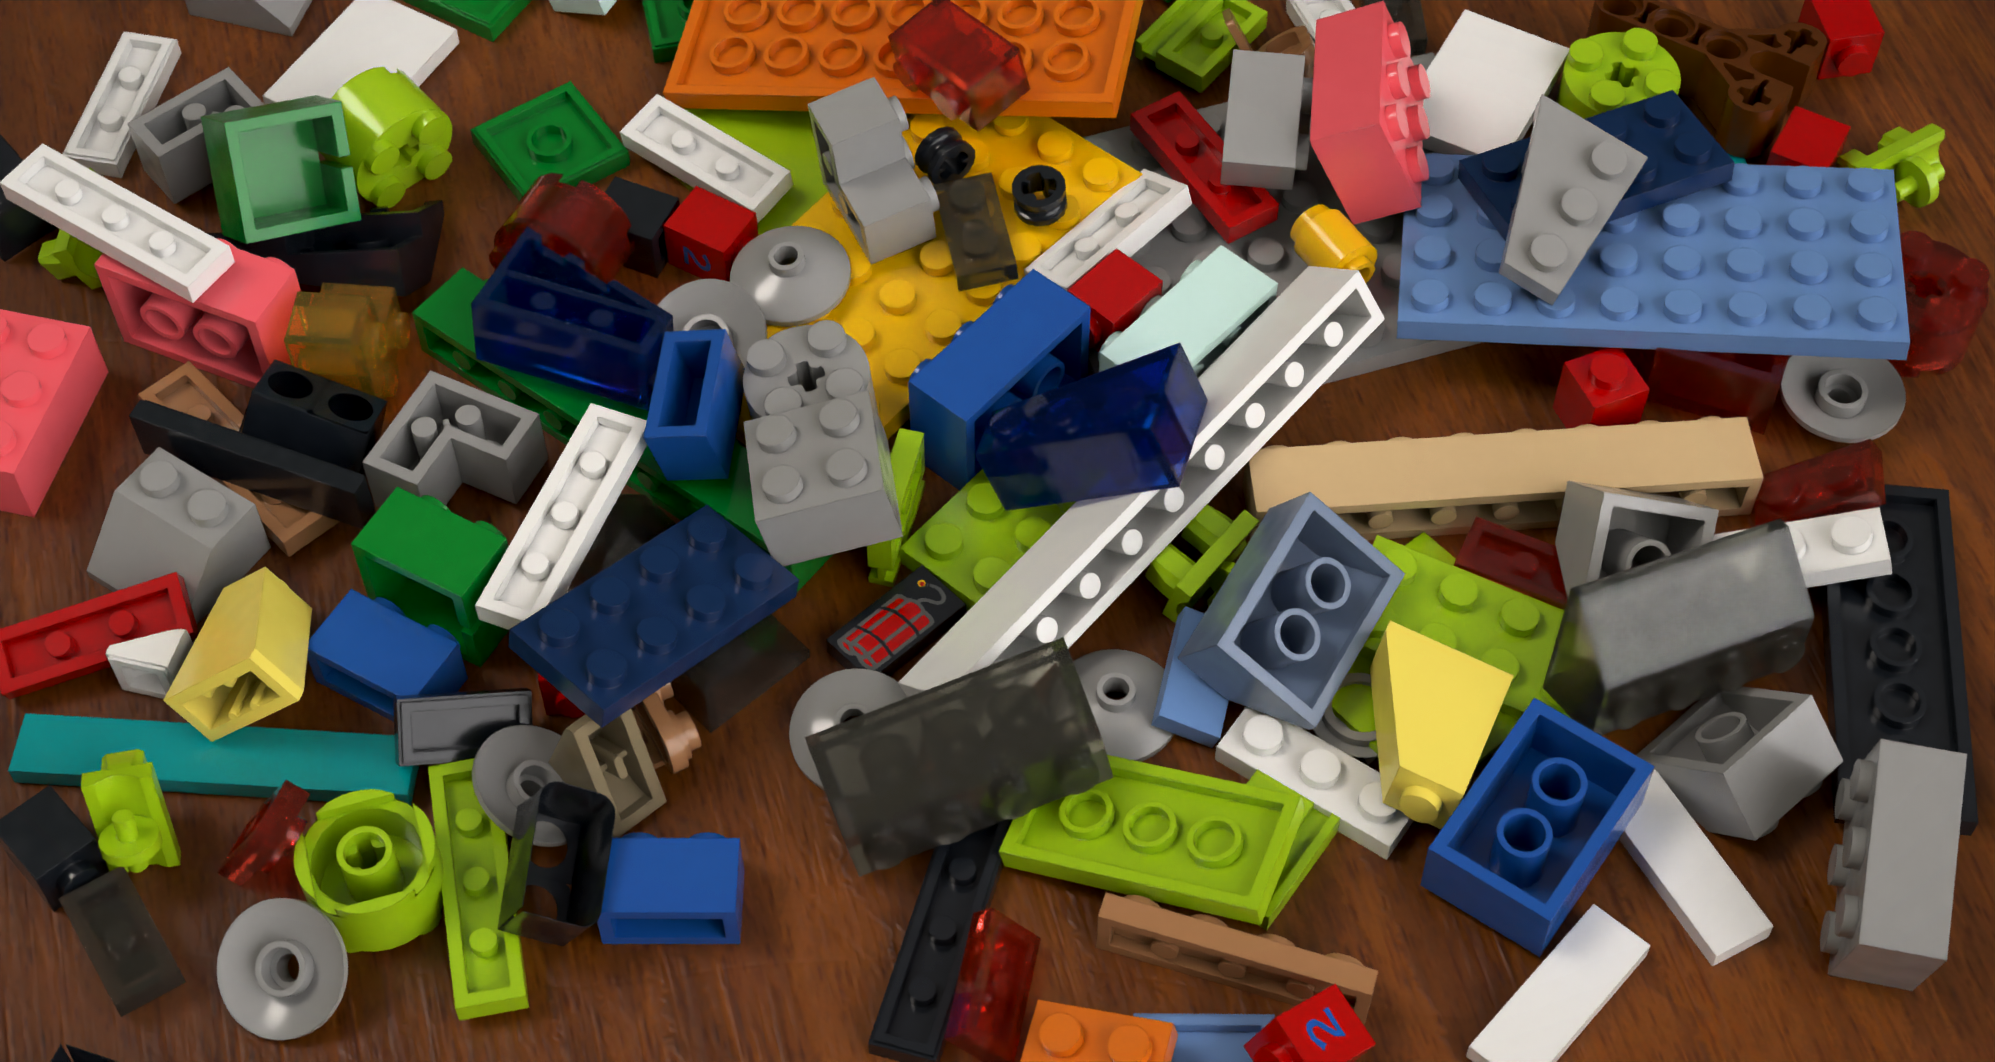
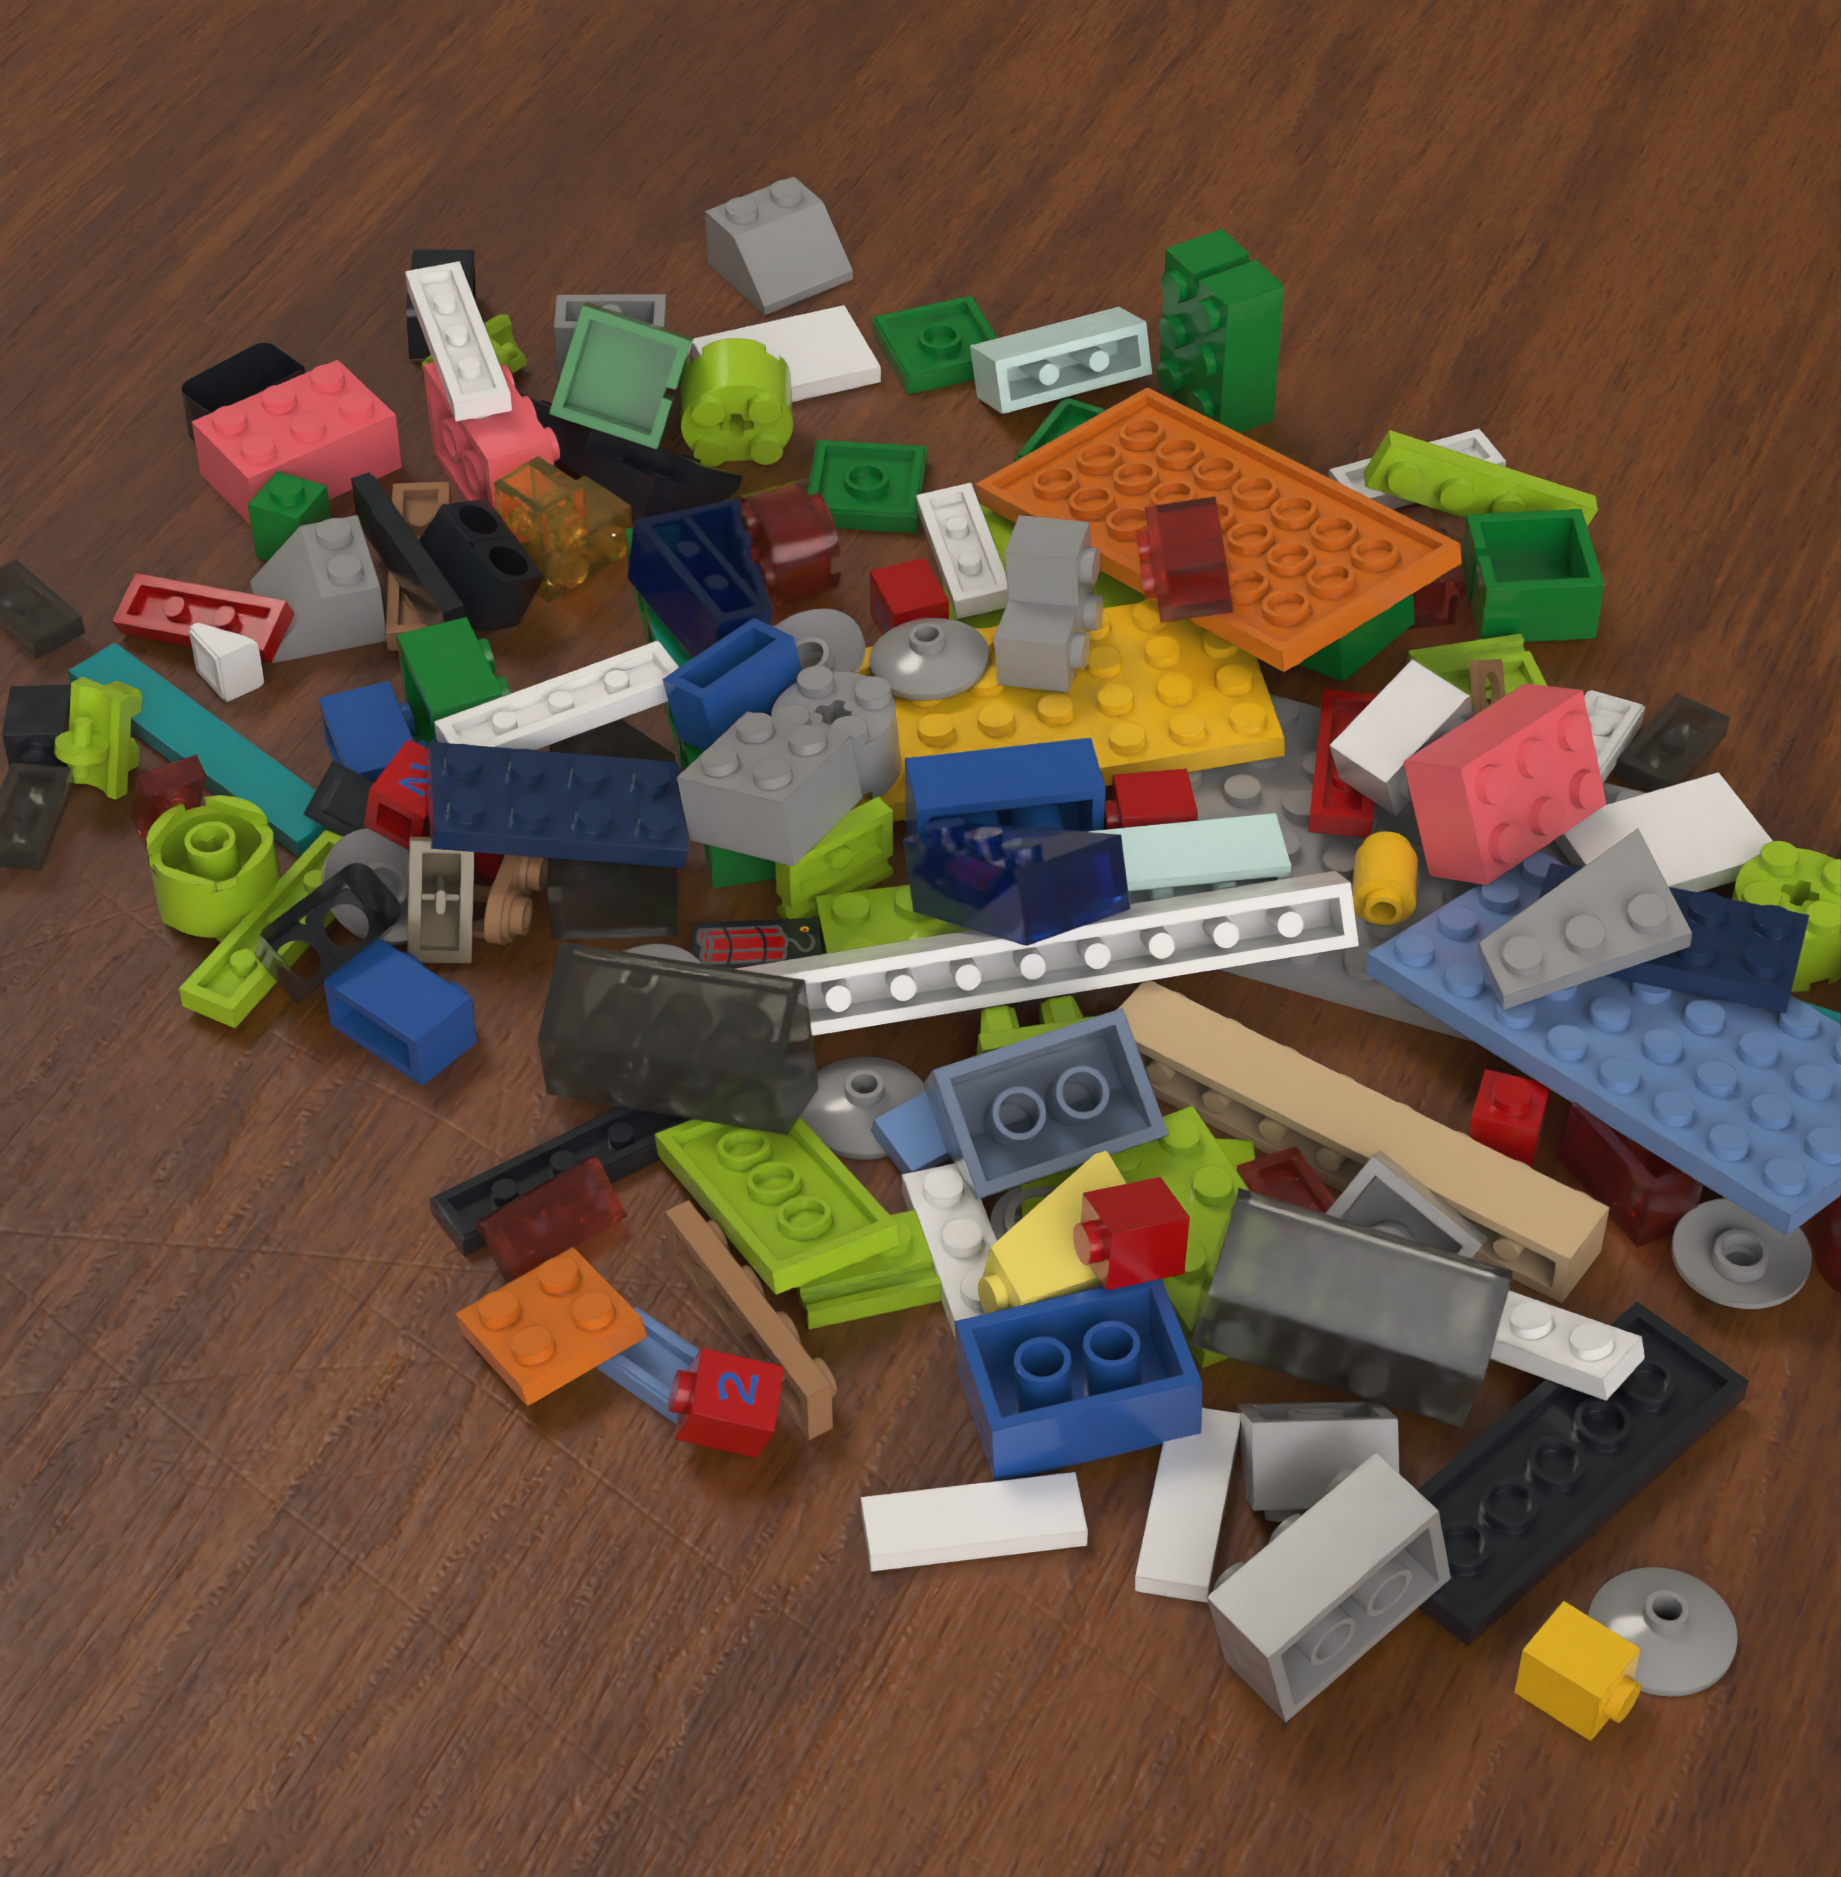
camera: 40 degrees right, 10 degrees down
(75, 486) = (282, 508): none -> green brick
(124, 92) = (629, 274): white tile -> none
(245, 657) = (274, 678): light yellow slope -> none
(256, 974) = (99, 893): light grey dish -> none
(454, 437) = (550, 627): light grey brick -> none
(506, 692) = (399, 797): none -> red brick
(647, 214) = (861, 550): black brick -> none
(944, 155) = (1127, 618): black bush -> none
(975, 232) = (1097, 698): clear smoke plate -> none
(1038, 179) = (1177, 688): black bush -> none
(1121, 222) = (1221, 765): white plate -> none
(1503, 679) = (1132, 1233): none -> red brick
(1823, 485) = (1628, 1301): clear red plate -> none

